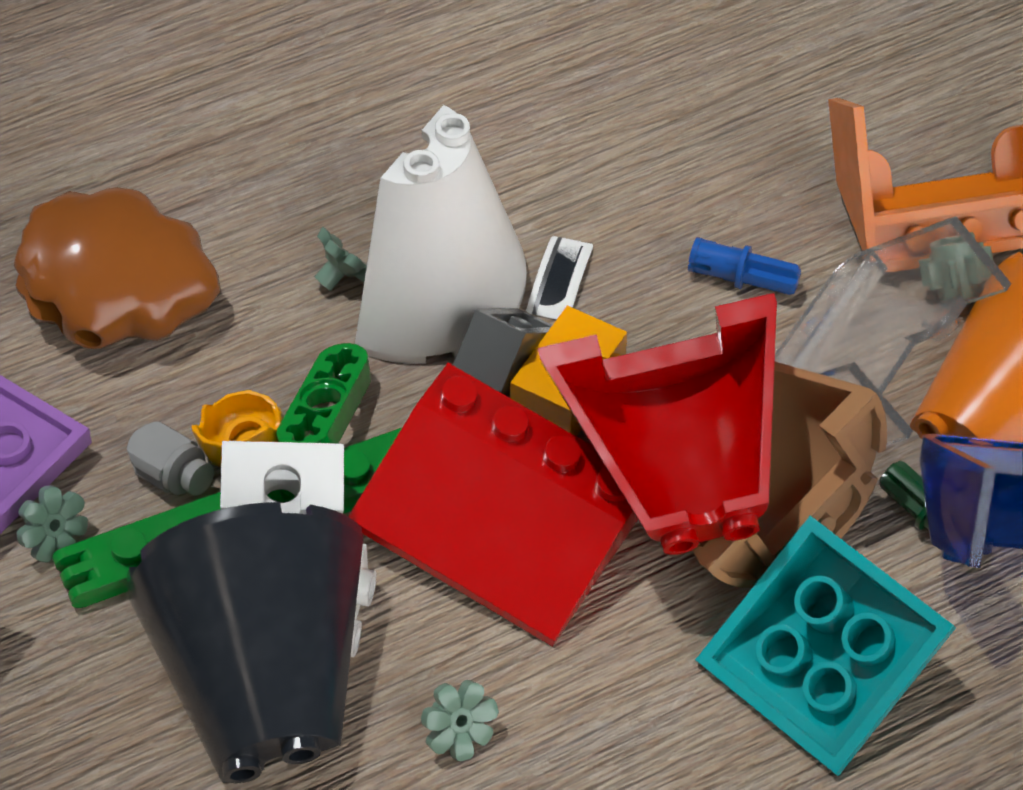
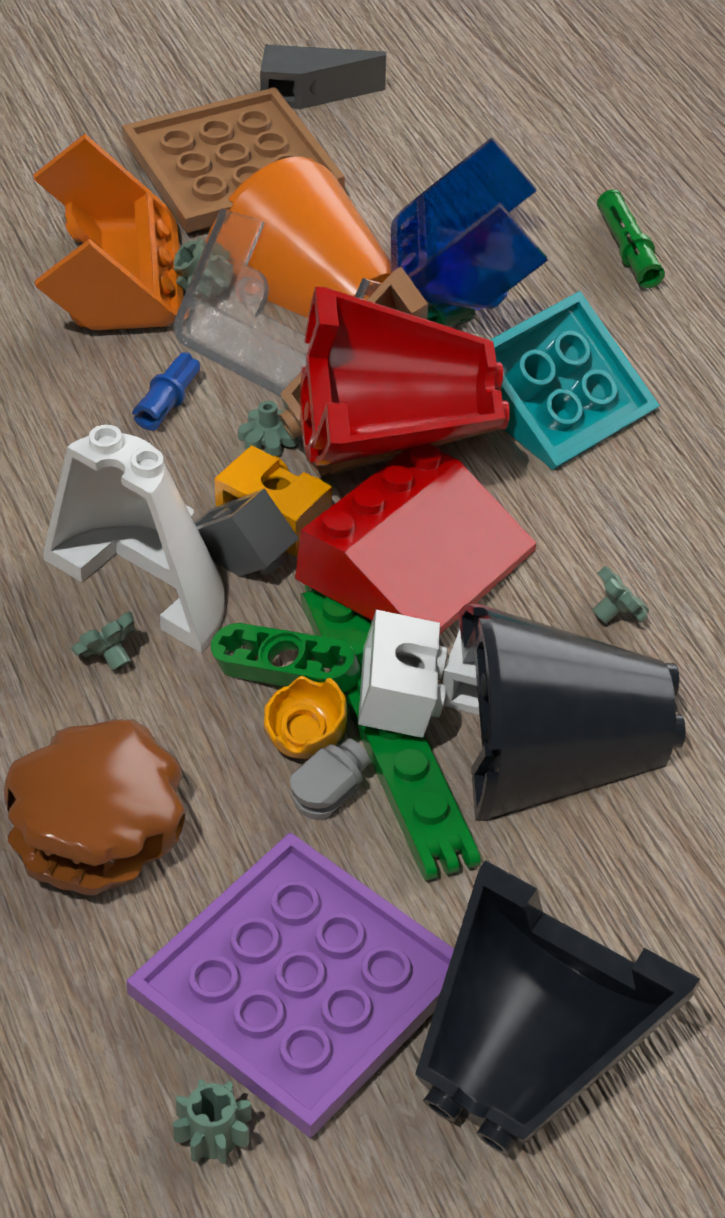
camera: 85 degrees left, 5 degrees down
(51, 522) = (393, 871): sand green plant -> none

